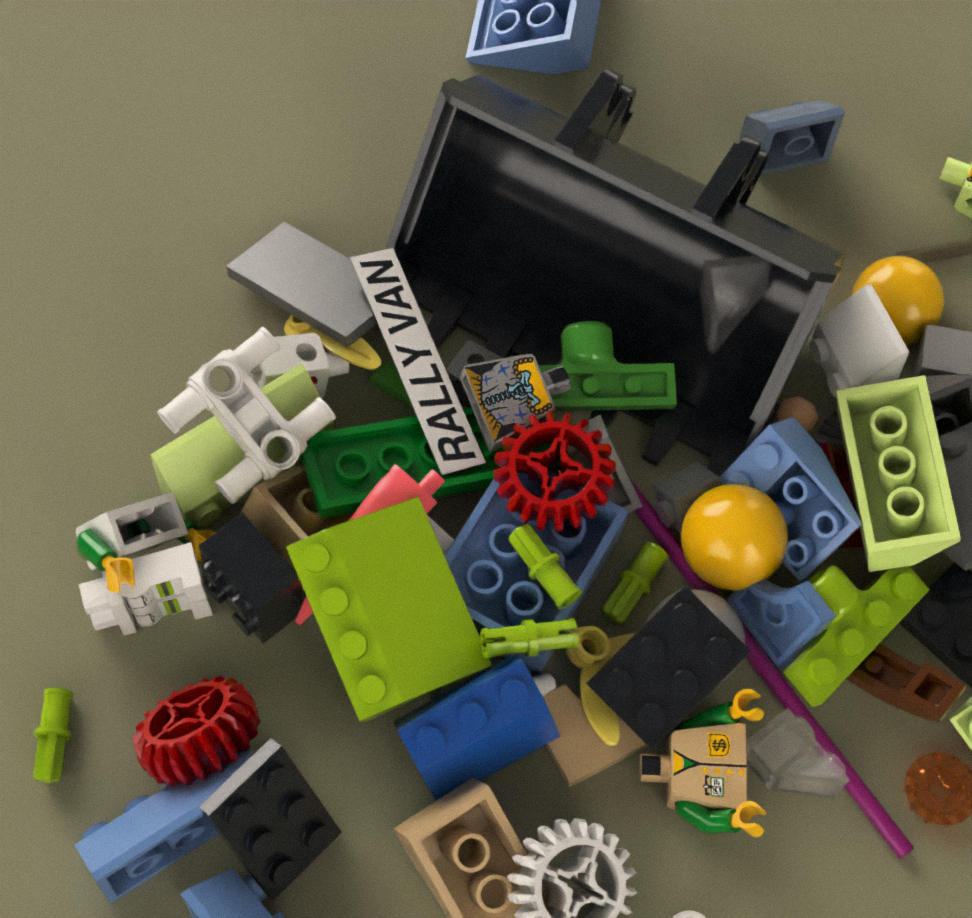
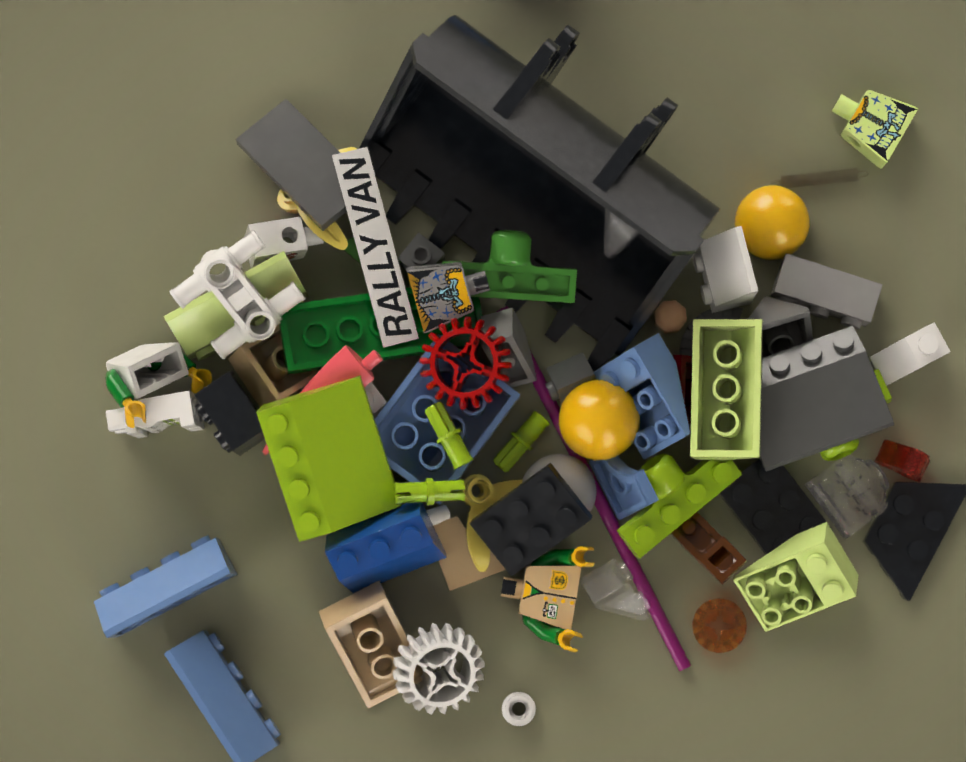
camera: 10 degrees right, 20 degrees up
(52, 735) = (82, 513): lime axle -> none
(196, 731) = (184, 529): red gear -> none
(271, 818) = (231, 602): black plate -> none
(795, 133) = (712, 59): sand blue slope -> none

